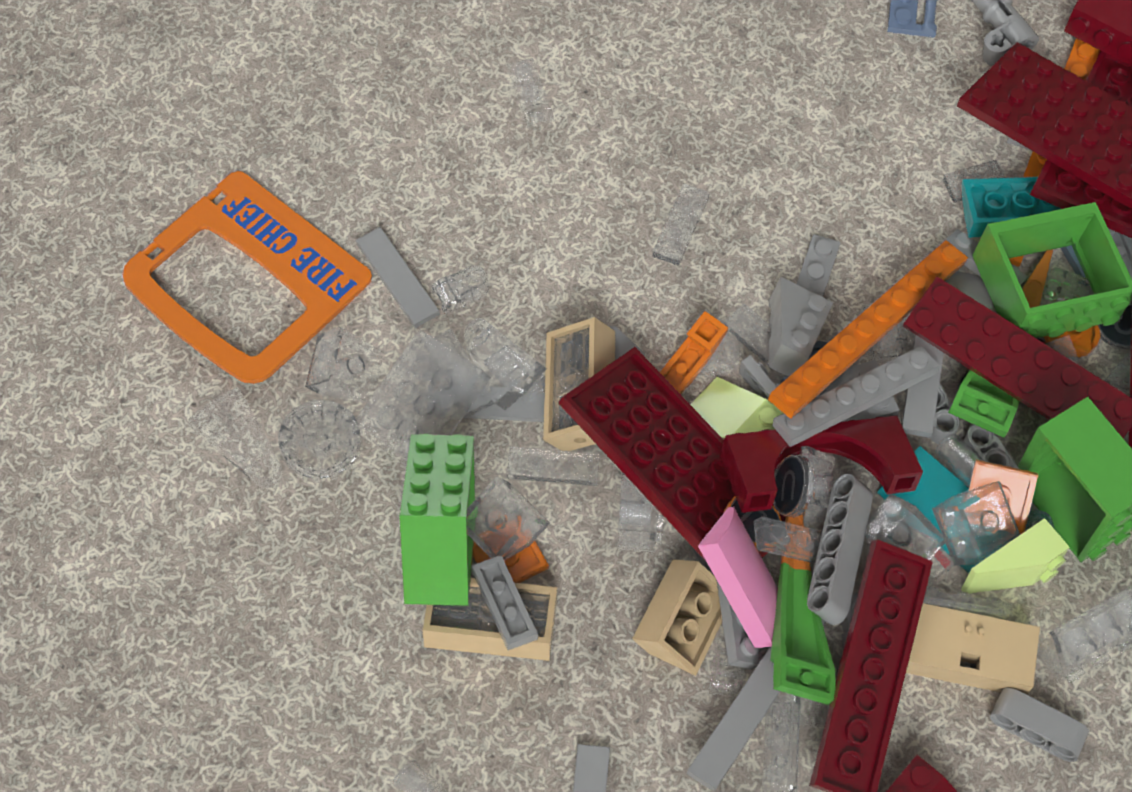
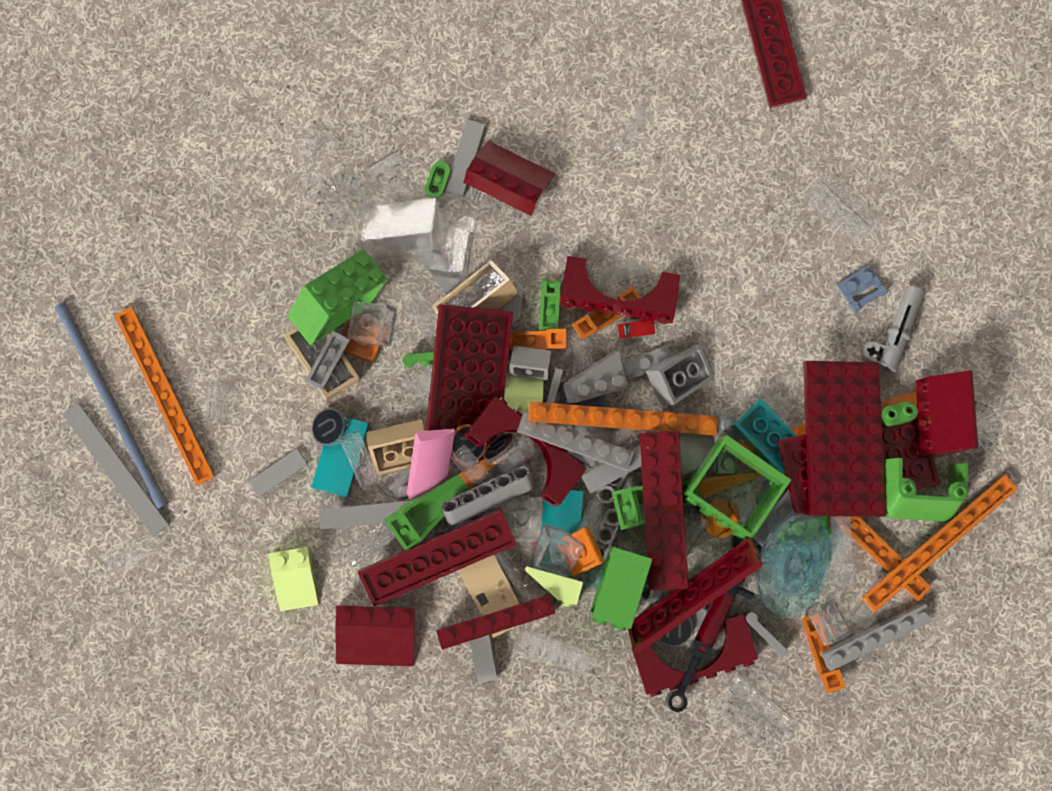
camera: 50 degrees right, 20 degrees up
(279, 241) = (435, 84): orange door -> none
(395, 325) = (437, 180): none -> bright green plate
(470, 244) = (508, 177): none -> dark red slope
(586, 679) = (329, 427): none -> black tile
(599, 499) = (424, 358): none -> bright green plate
(633, 698) = (334, 469): none -> teal slope
(655, 317) = (549, 305): none -> bright green plate
(664, 672) = (360, 460): none -> clear plate
(672, 269) = (656, 305): none -> dark red arch
(711, 383) = (530, 363): none -> light grey brick
(722, 263) = (597, 320): none -> orange slope
(766, 251) = (636, 329): none -> slope
(862, 246) = (680, 375): none -> light grey slope
(1001, 710) = (495, 622): none -> dark red arch
(1093, 64) = (899, 413): none -> bright green plate

